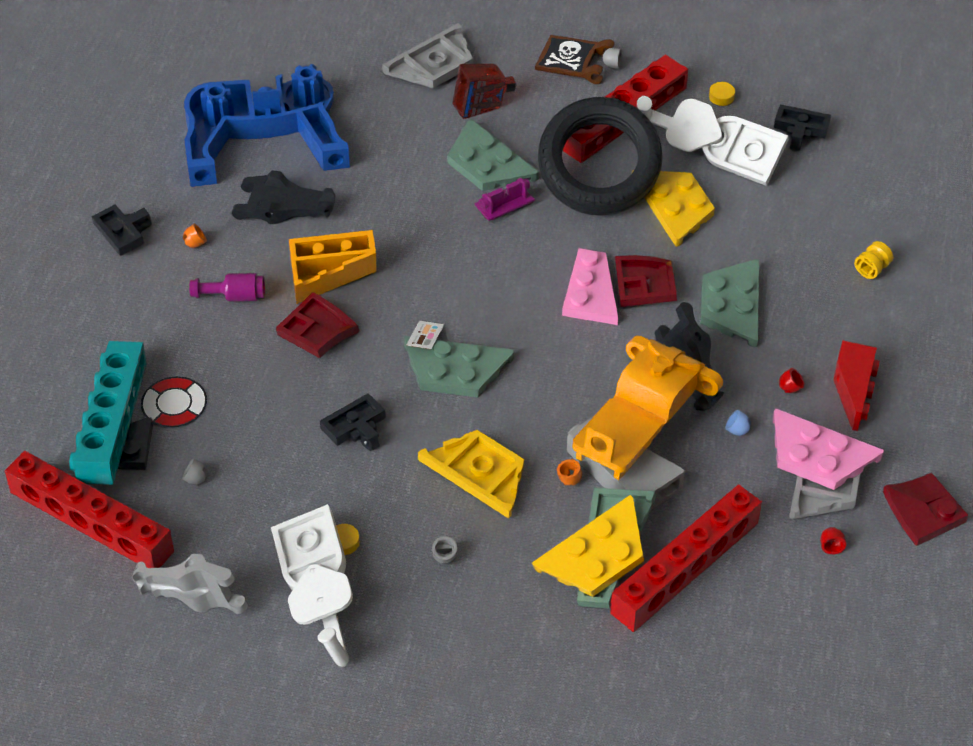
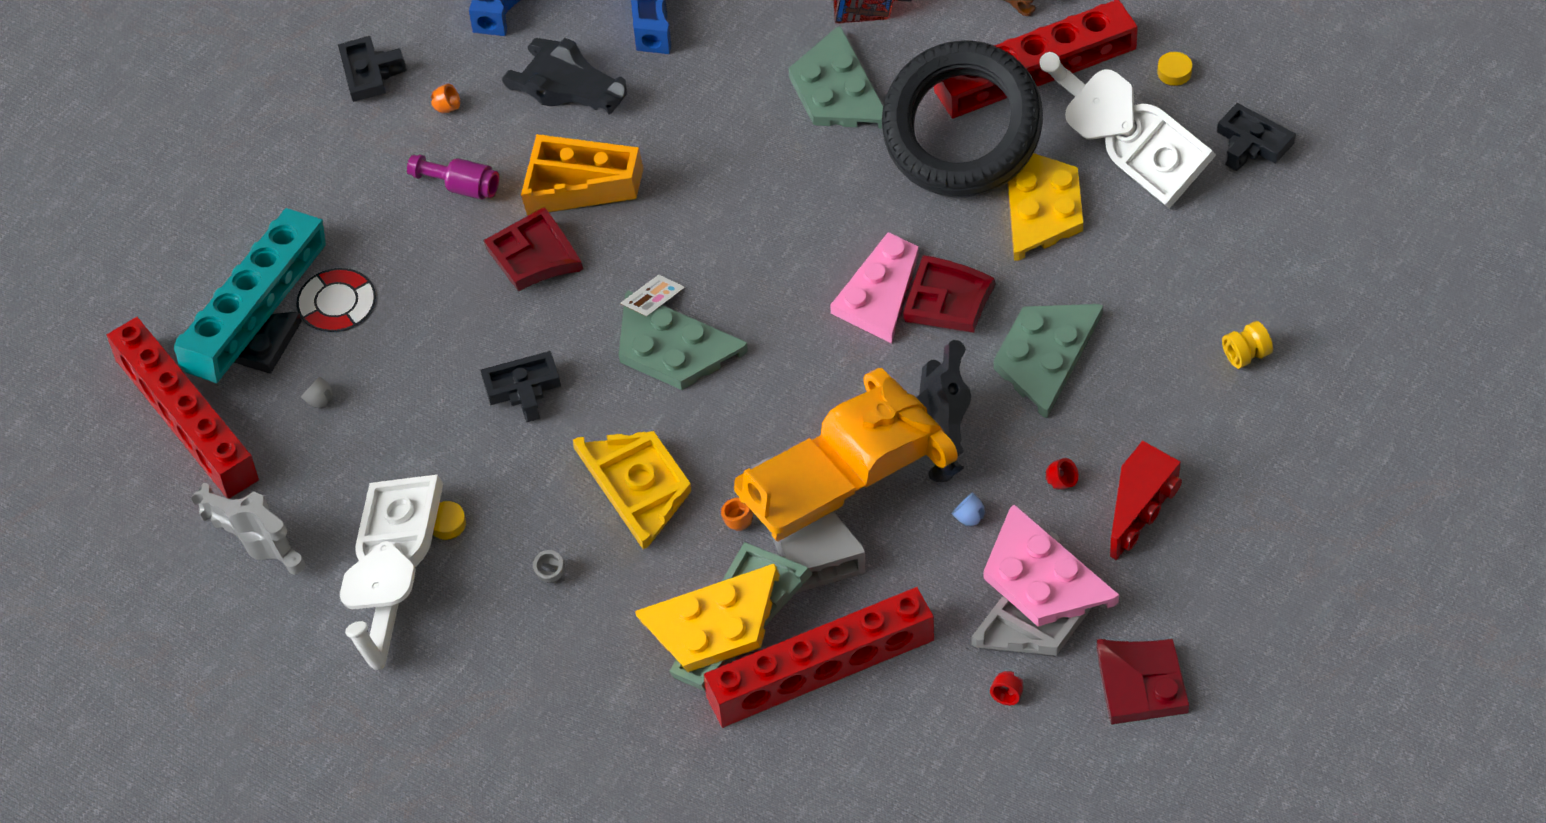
camera: 25 degrees right, 5 degrees up
(504, 201) = (822, 148): magenta hinge -> none

